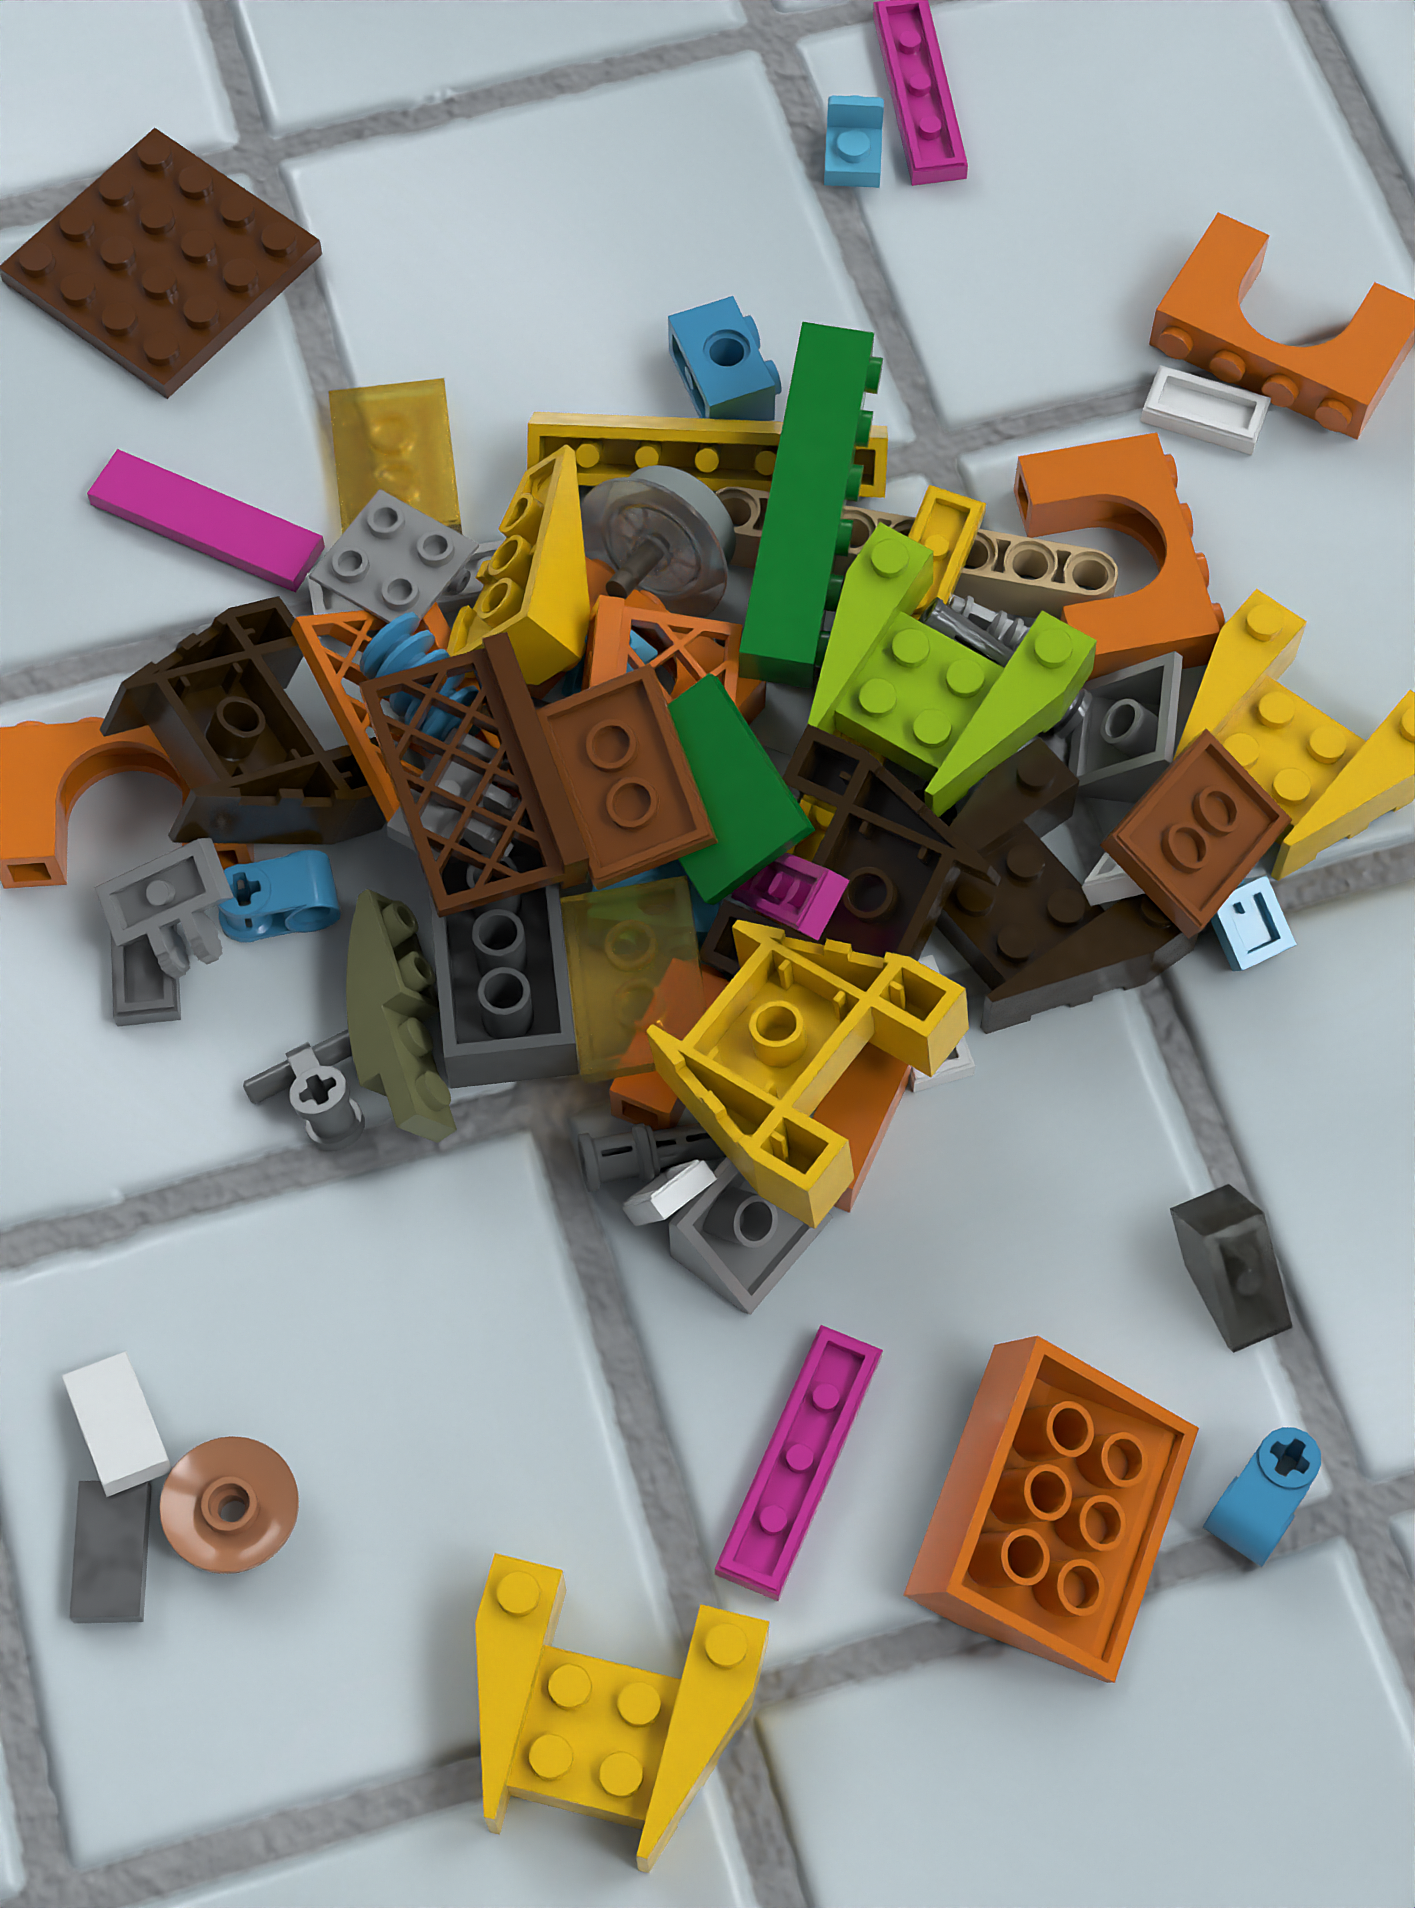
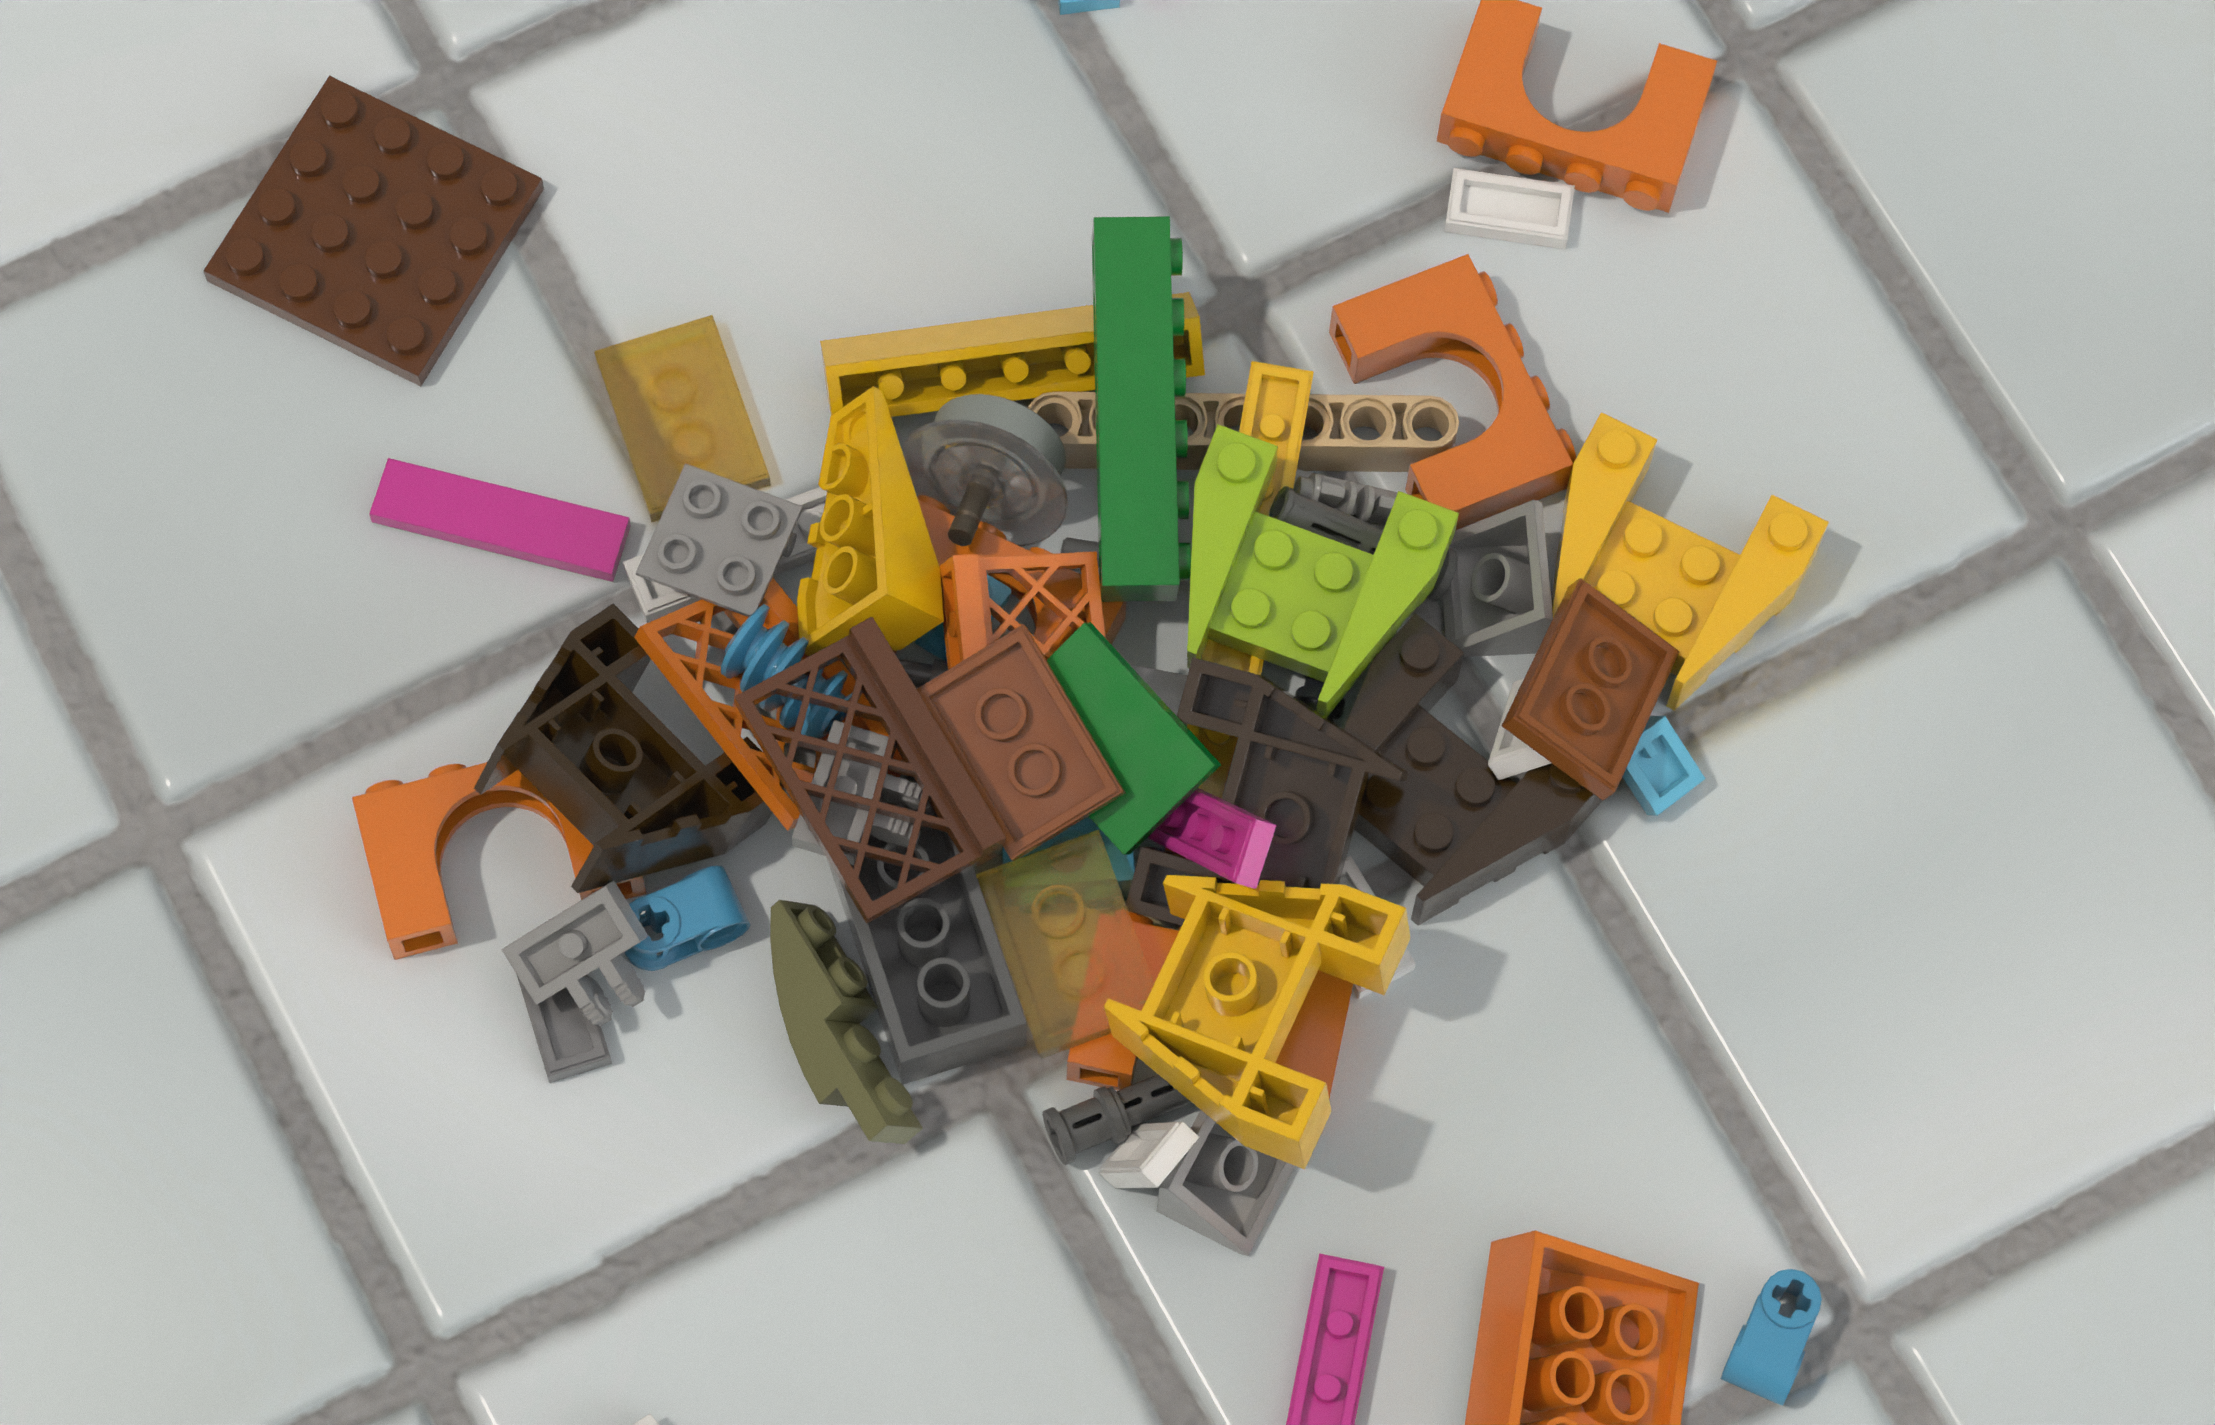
camera: 15 degrees left, 5 degrees up
(316, 1092) = (778, 1118): dark grey piece -> none
(717, 337) = (995, 218): dark azure brick -> none
(1233, 1265) = (1702, 1117): clear smoke slope -> none

